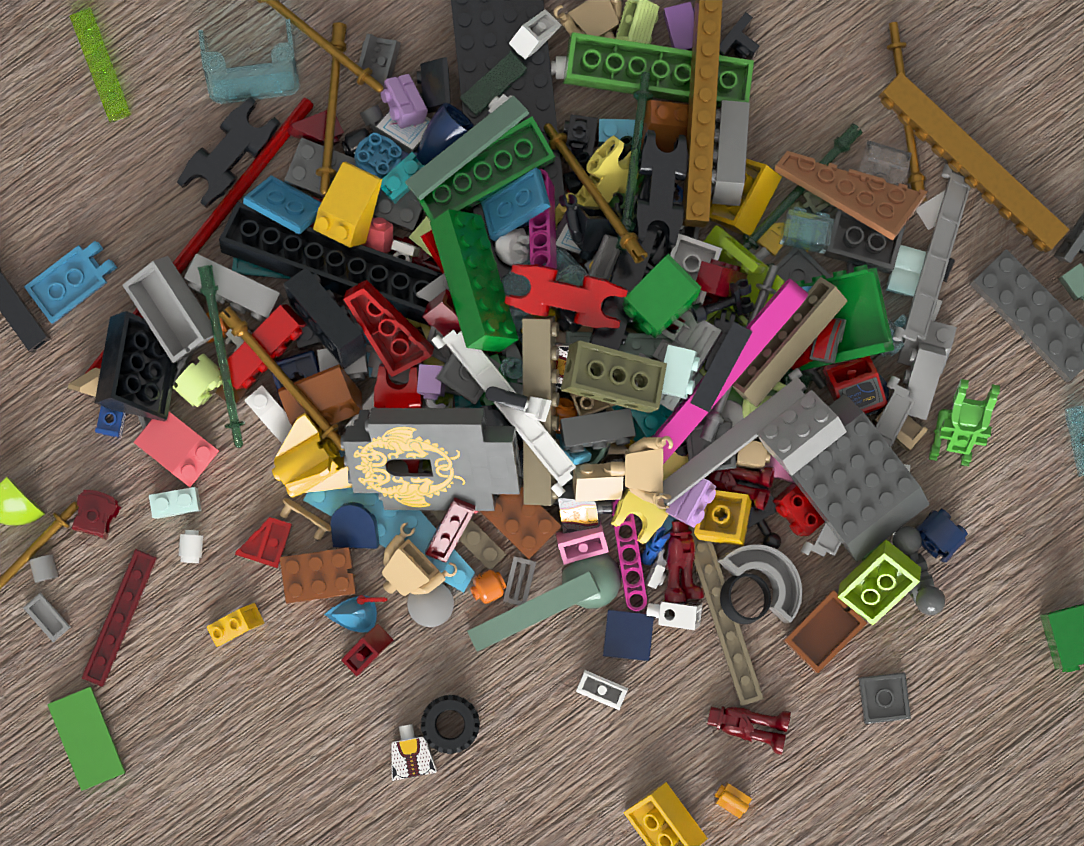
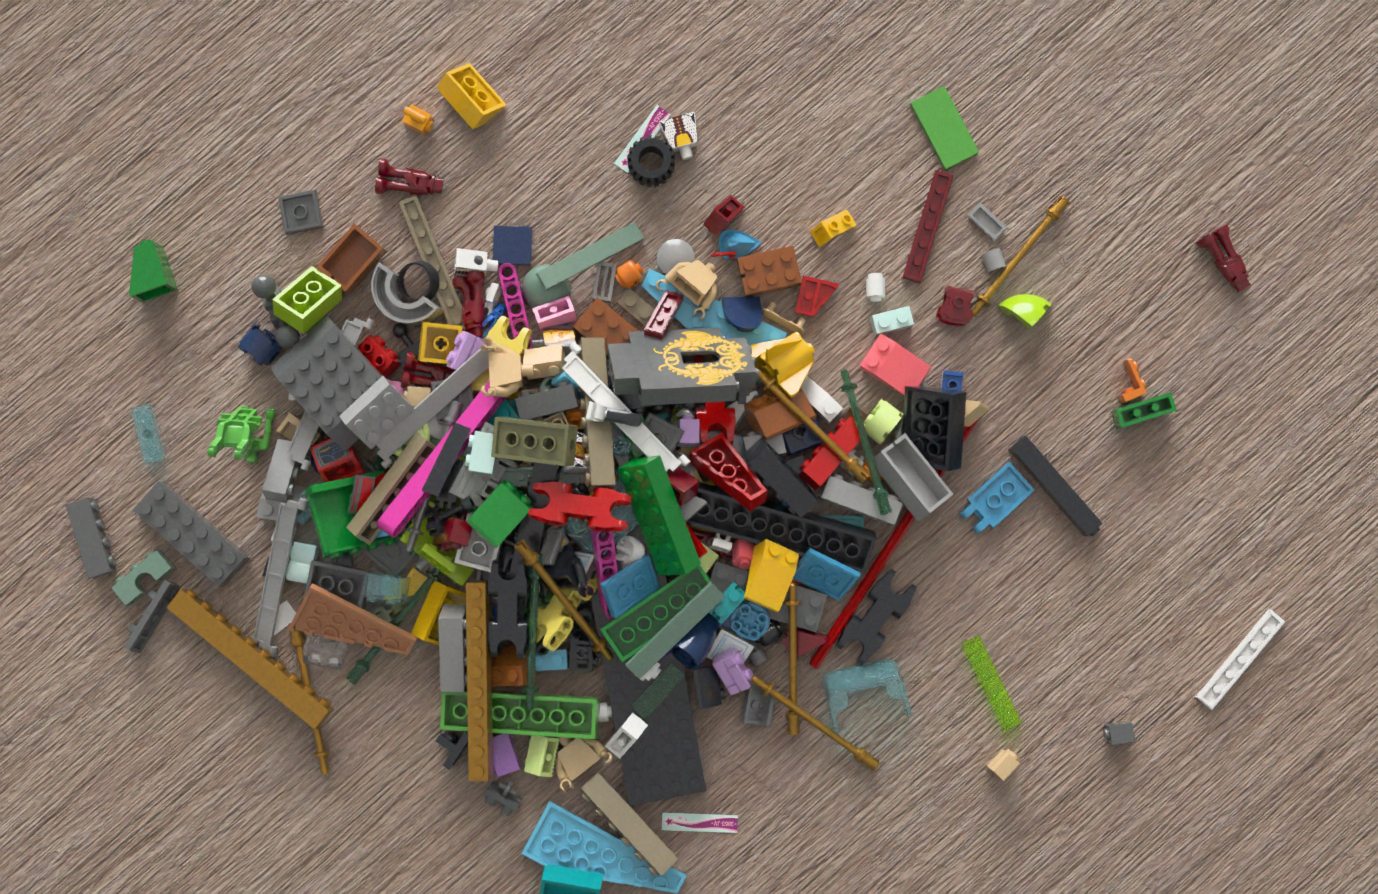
camera: 175 degrees right, 0 degrees up
(455, 762) = (649, 127): none -> sticker
(601, 689) = (530, 198): white brick -> none

